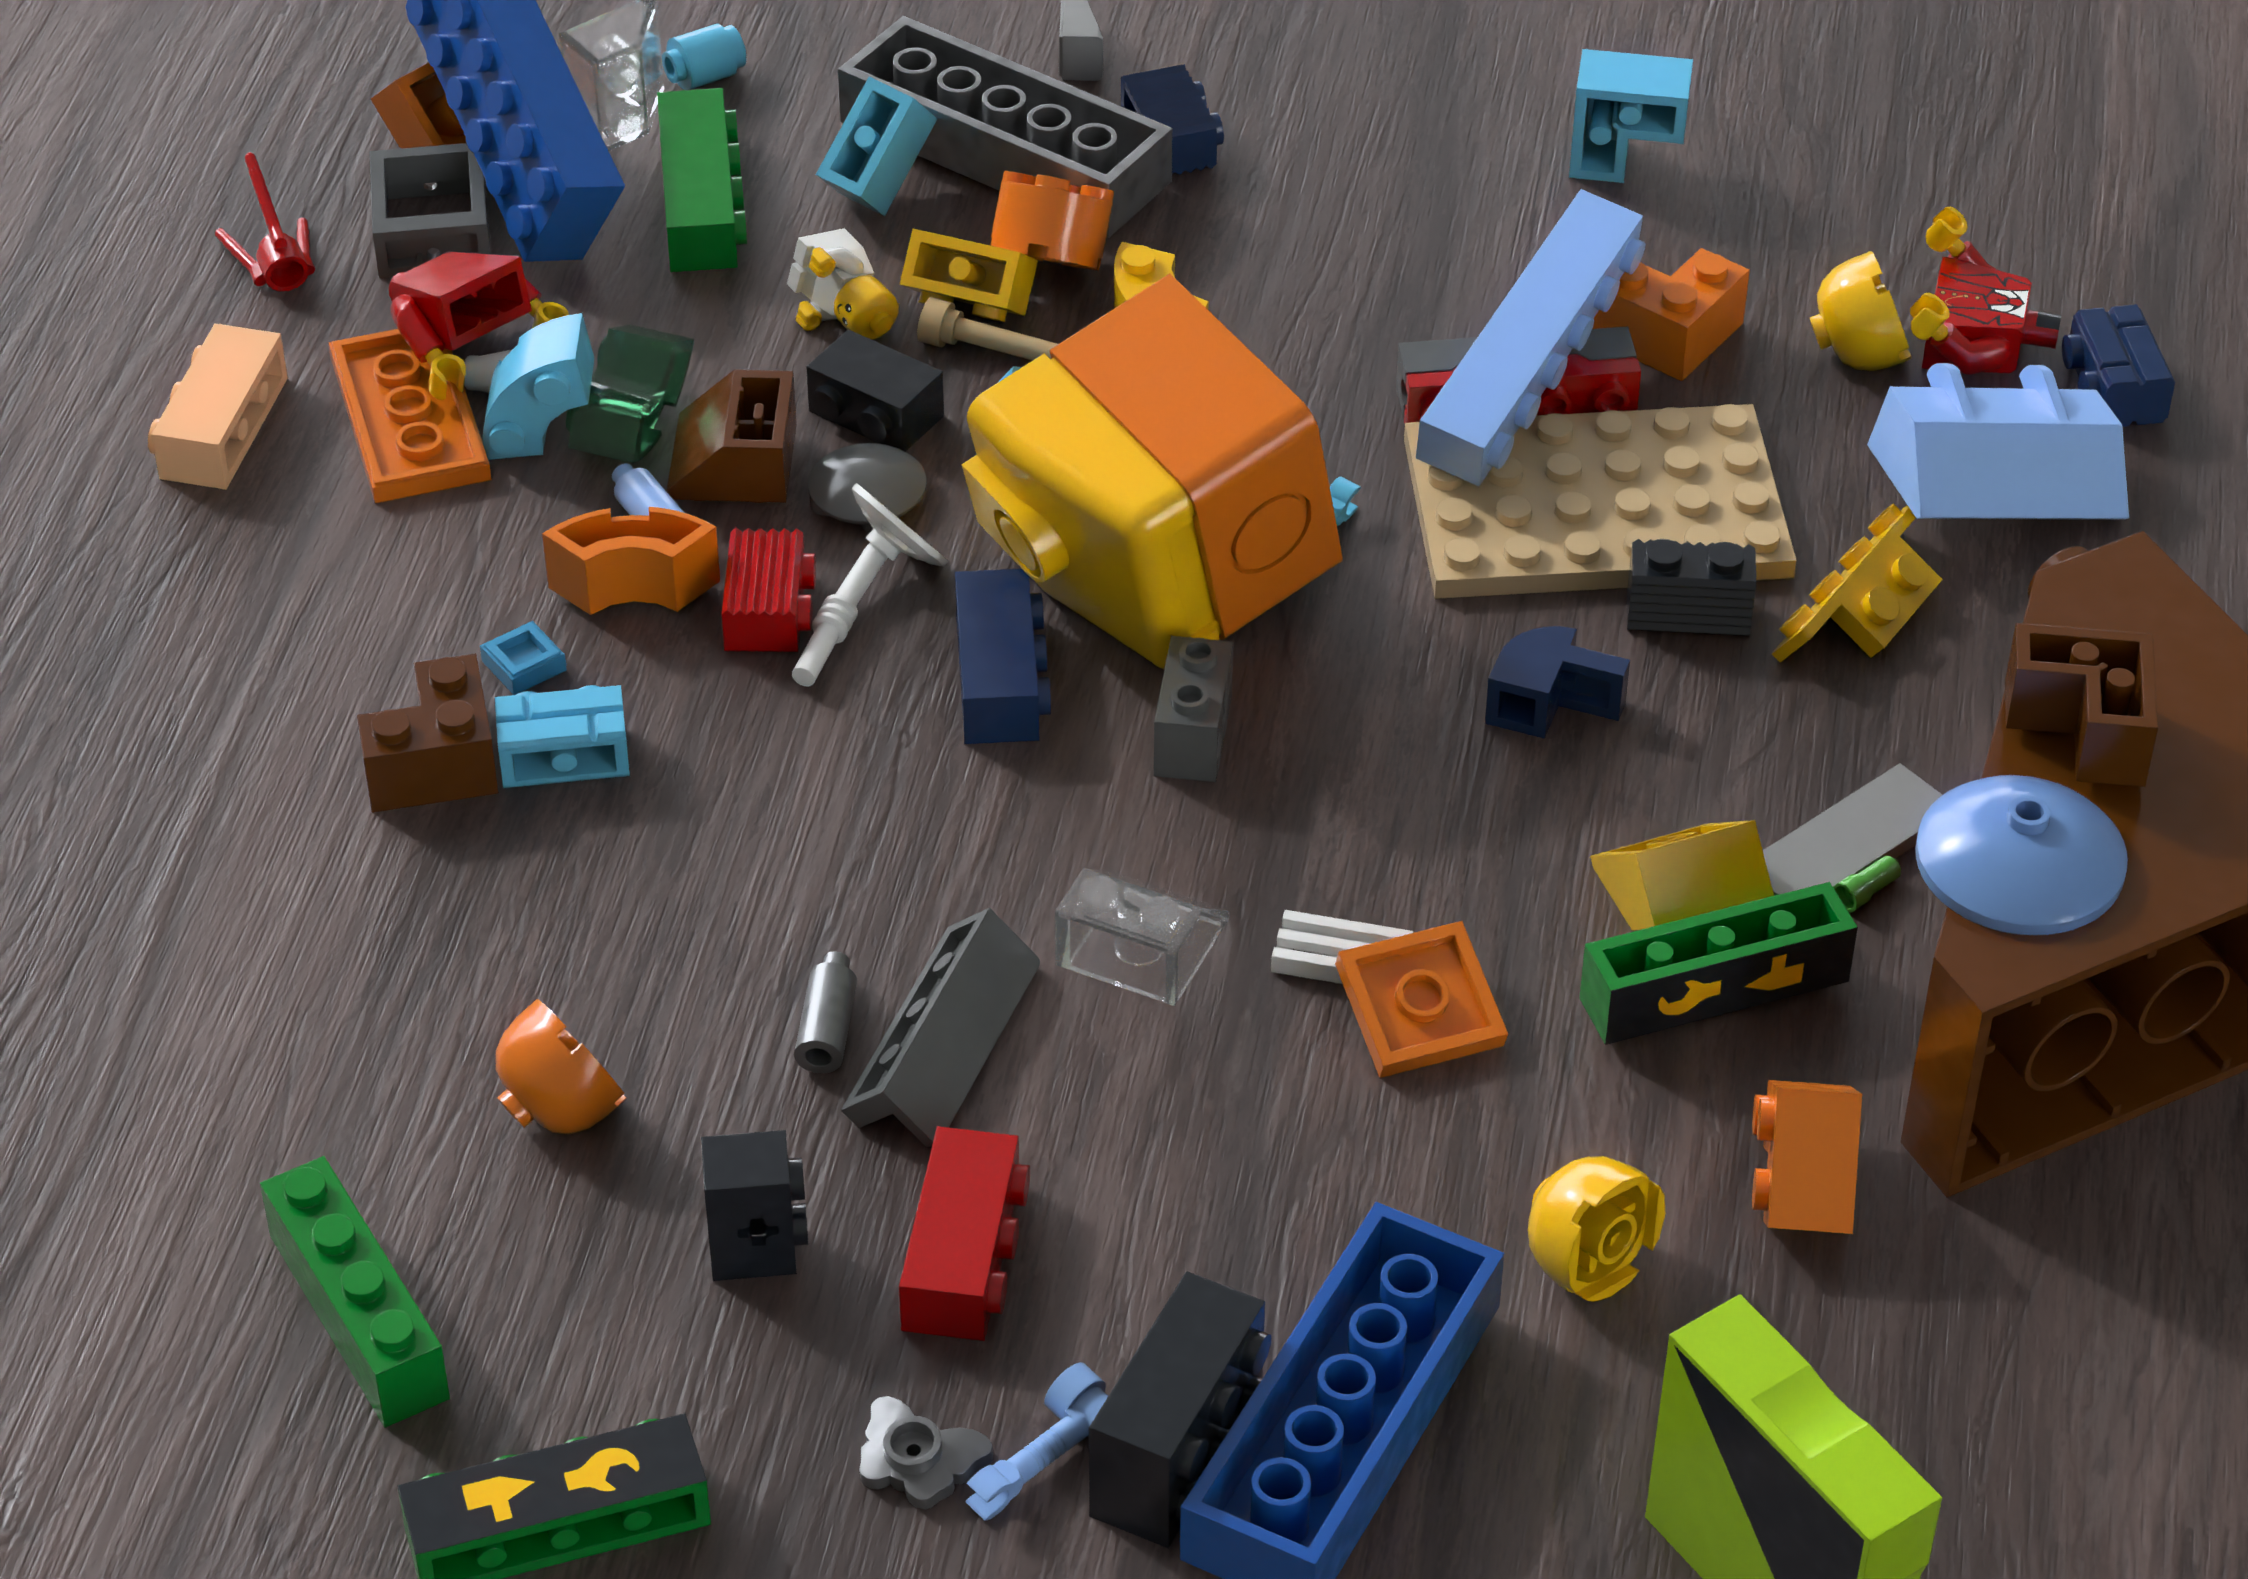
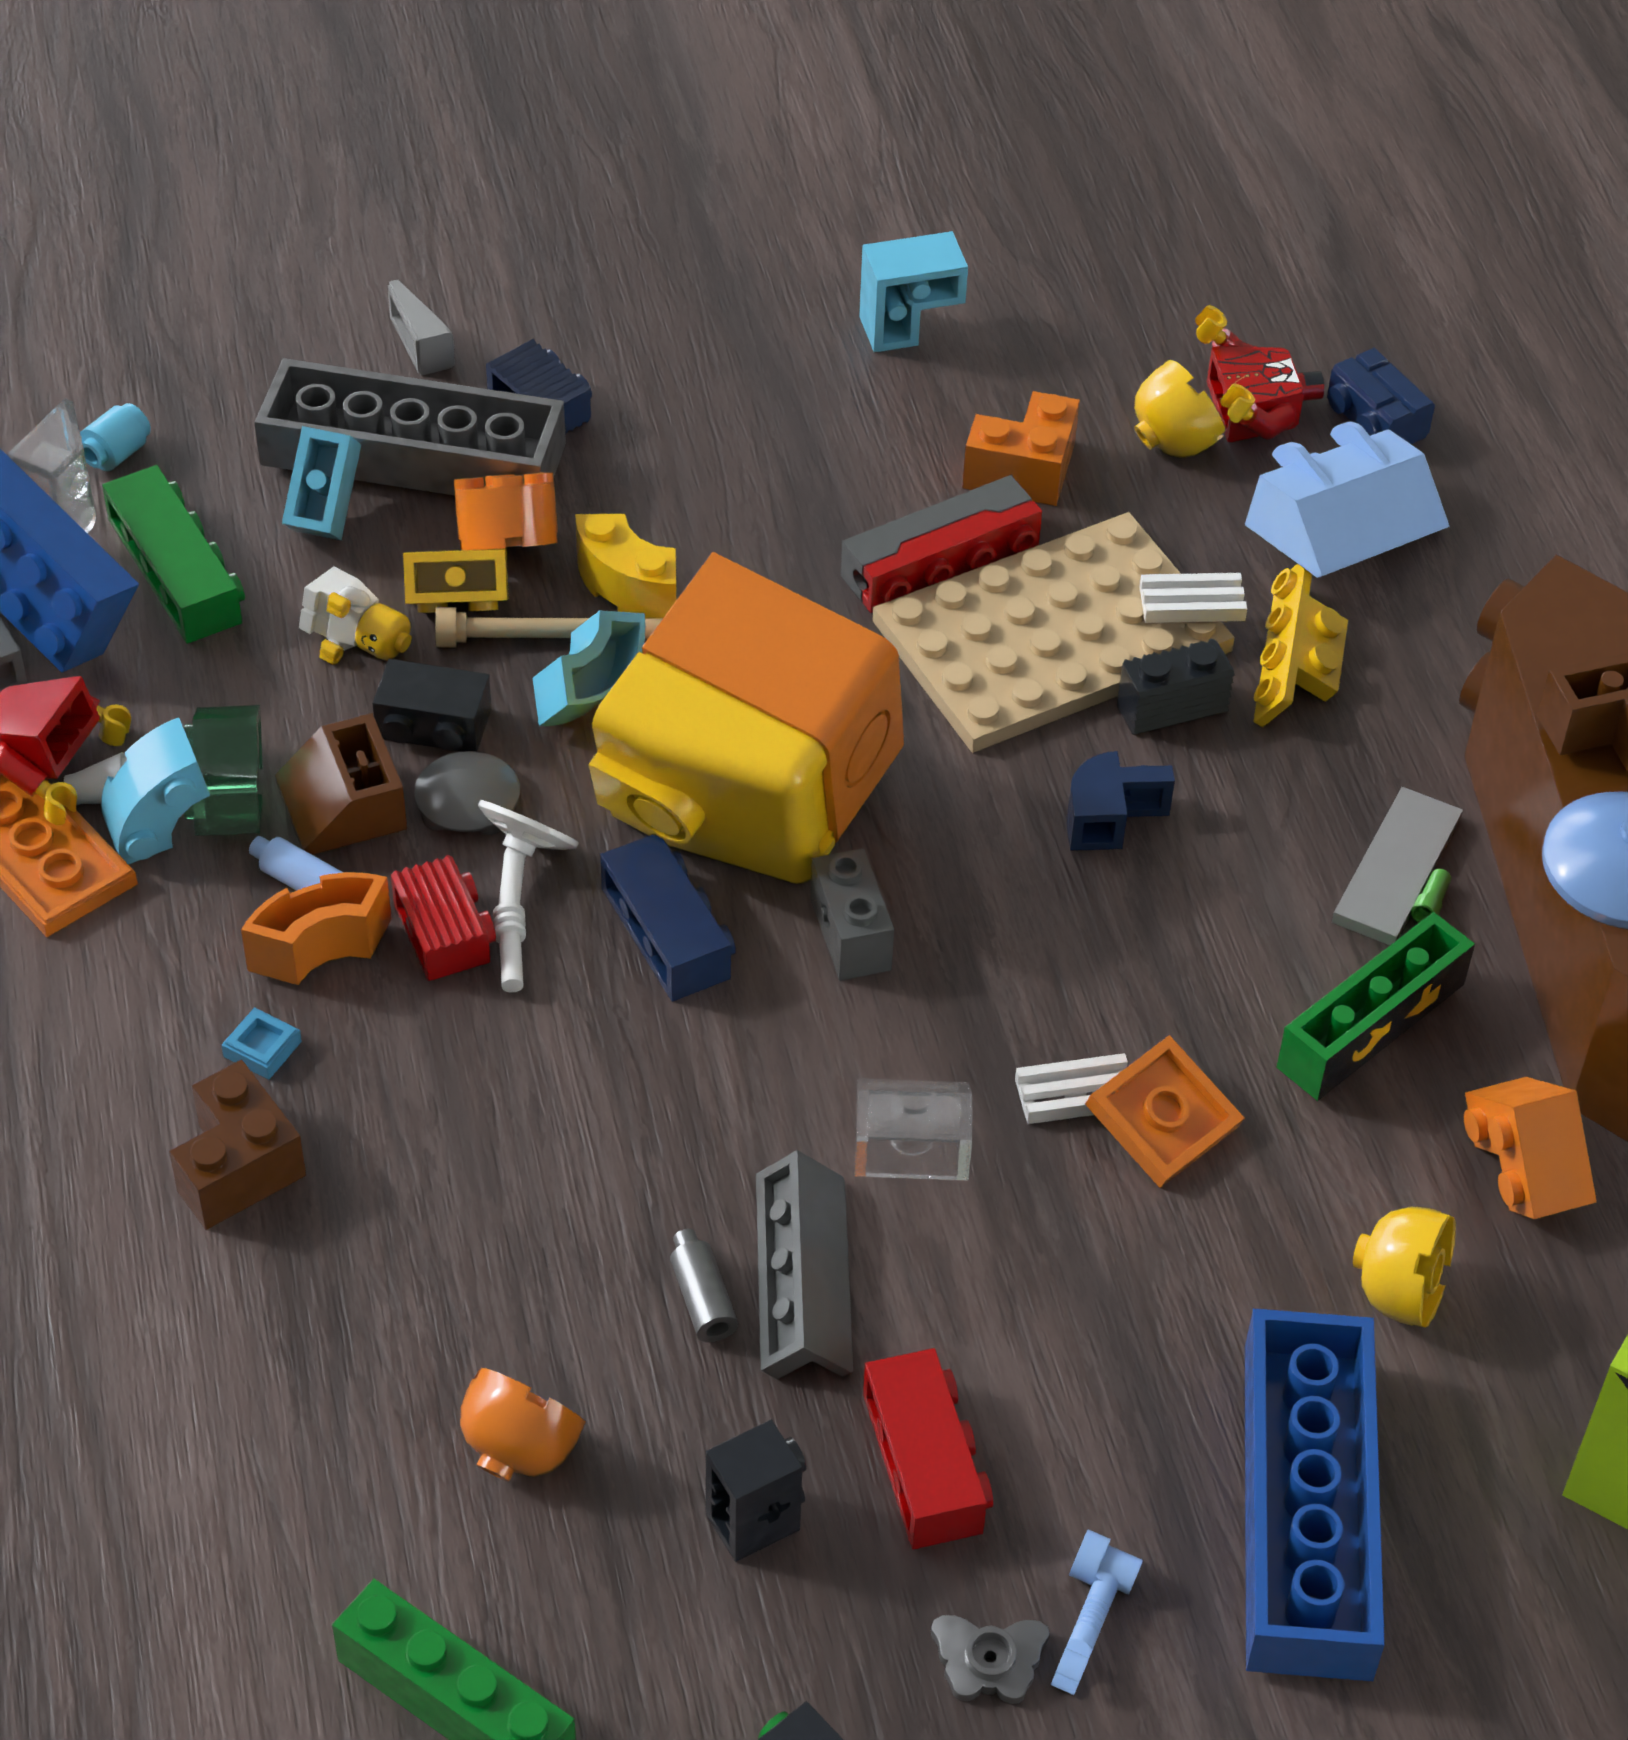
camera: 25 degrees left, 5 degrees up
(561, 736) = (345, 1105): medium azure brick -> none
(1175, 1406) = (1197, 1546): black brick -> none
(1529, 338) = (955, 510): light blue brick -> none
(1685, 873) = (1303, 935): yellow slope -> none
(1763, 503) = (1202, 595): none -> white tile

